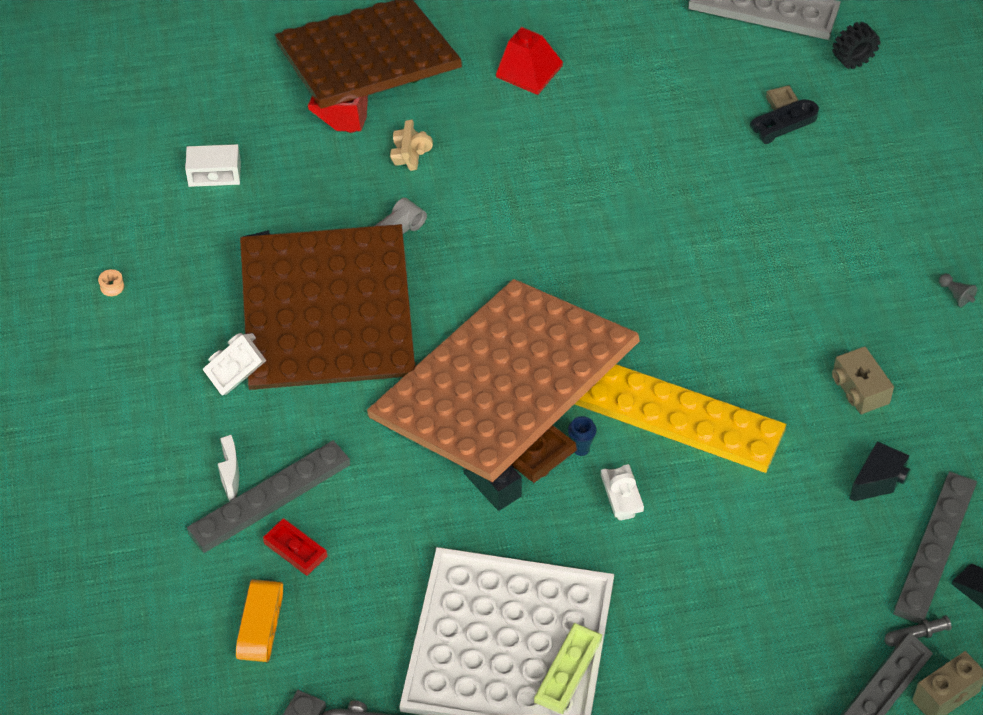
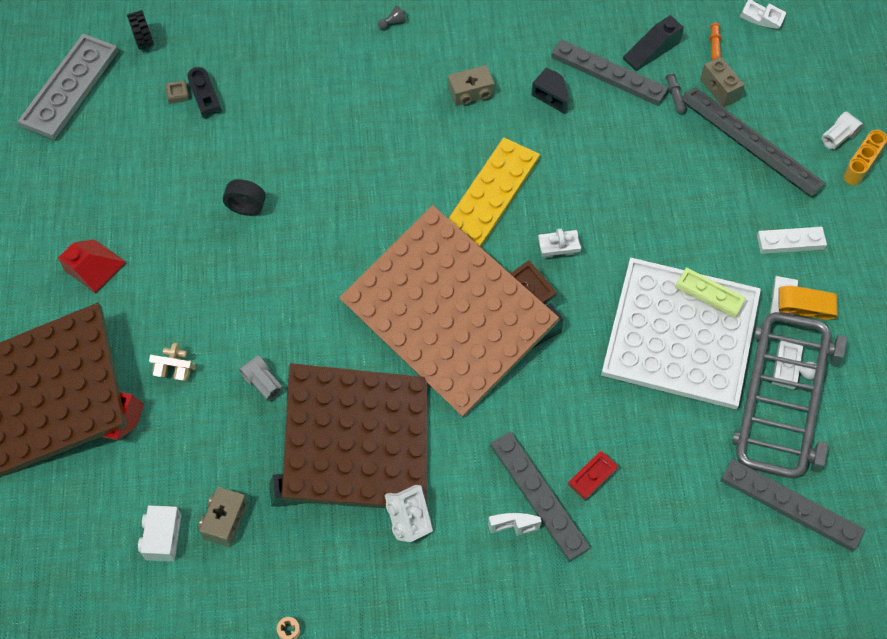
camera: 85 degrees left, 10 degrees up
(232, 211) = (223, 529): none -> dark tan brick
(259, 620) = (661, 503): light orange beam -> none
(582, 431) = (509, 259): dark blue cone -> none
(631, 170) = (253, 200): none -> black tyre

